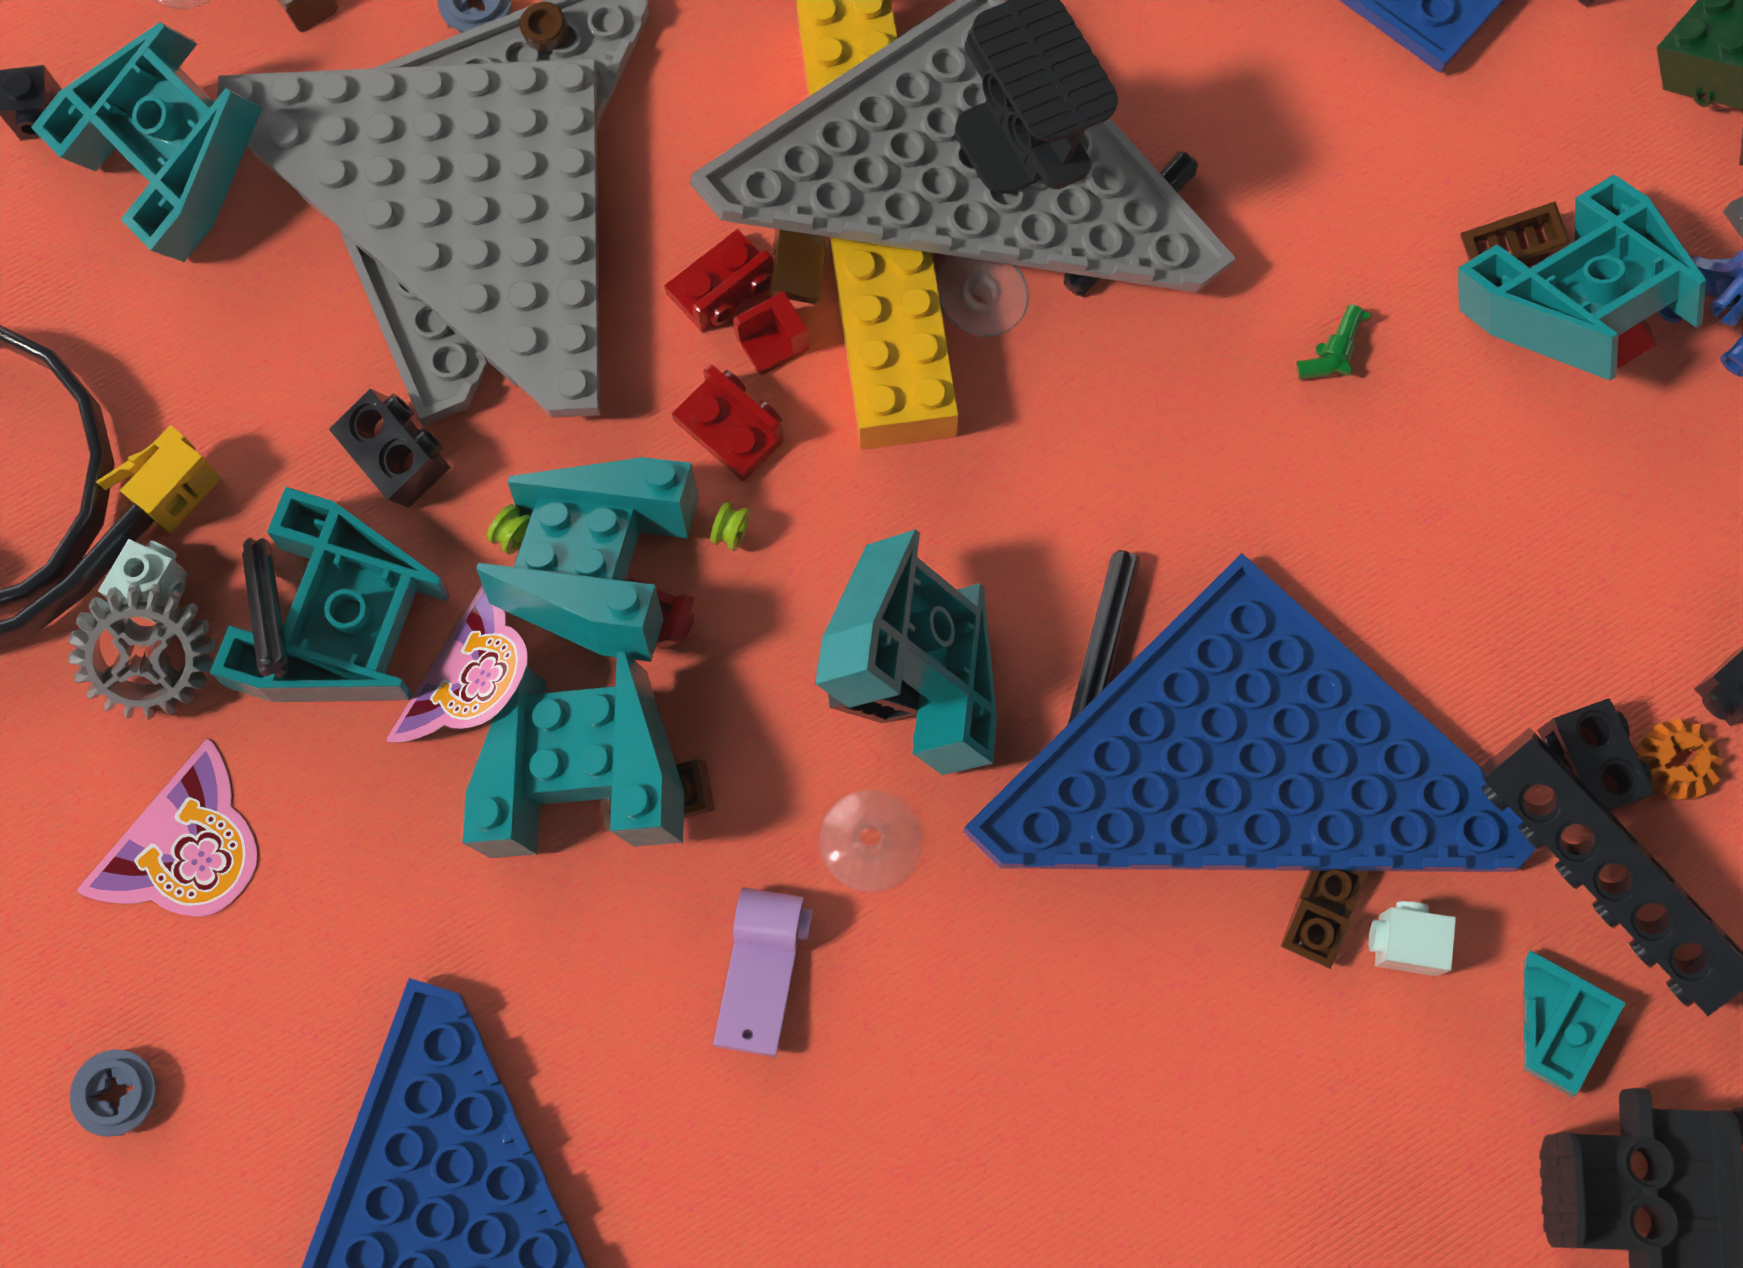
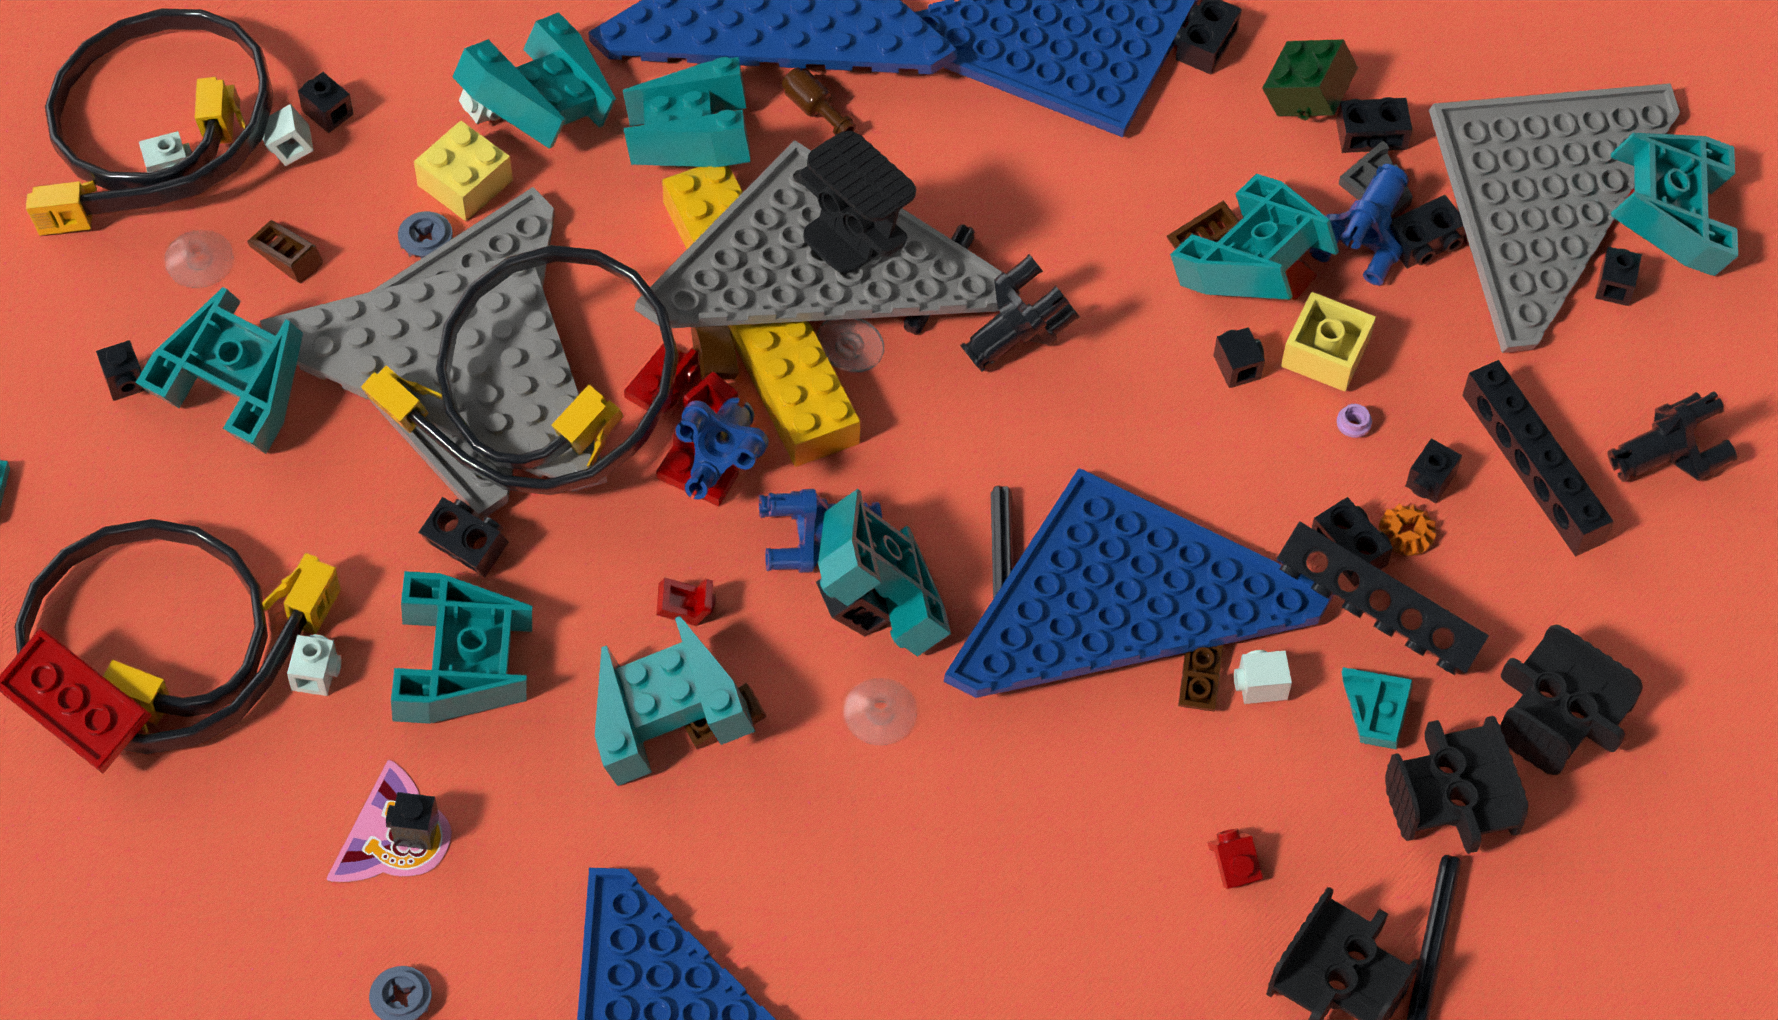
camera: 20 degrees left, 15 degrees down
(166, 681) = (321, 715): light grey gear -> none
(200, 846) = (413, 820): none -> black brick
(264, 608) = (413, 652): black axle -> none
(469, 677) = (569, 666): sticker -> none
(508, 529) = (566, 570): lime bush -> none
(544, 26) = (485, 238): reddish brown tile -> none
(574, 331) = (576, 427): none -> black piece
(582, 547) = (622, 565): teal wedge -> none
(730, 526) = (721, 533): lime bush -> none
(754, 402) = (719, 441): none -> blue wheel
(760, 970) = (831, 804): lavender door -> none
(846, 523) = (809, 513): none -> blue wheel
(1217, 312) = (1016, 320): none -> black wheel
(1297, 1204) = (1236, 858): none -> red bracket
(1338, 350) = (1105, 329): green piece -> none
(1512, 439) = (1239, 357): none -> black brick
(1647, 450) = (1328, 341): none -> light yellow brick
(1658, 566) = (1356, 413): none -> lavender plate

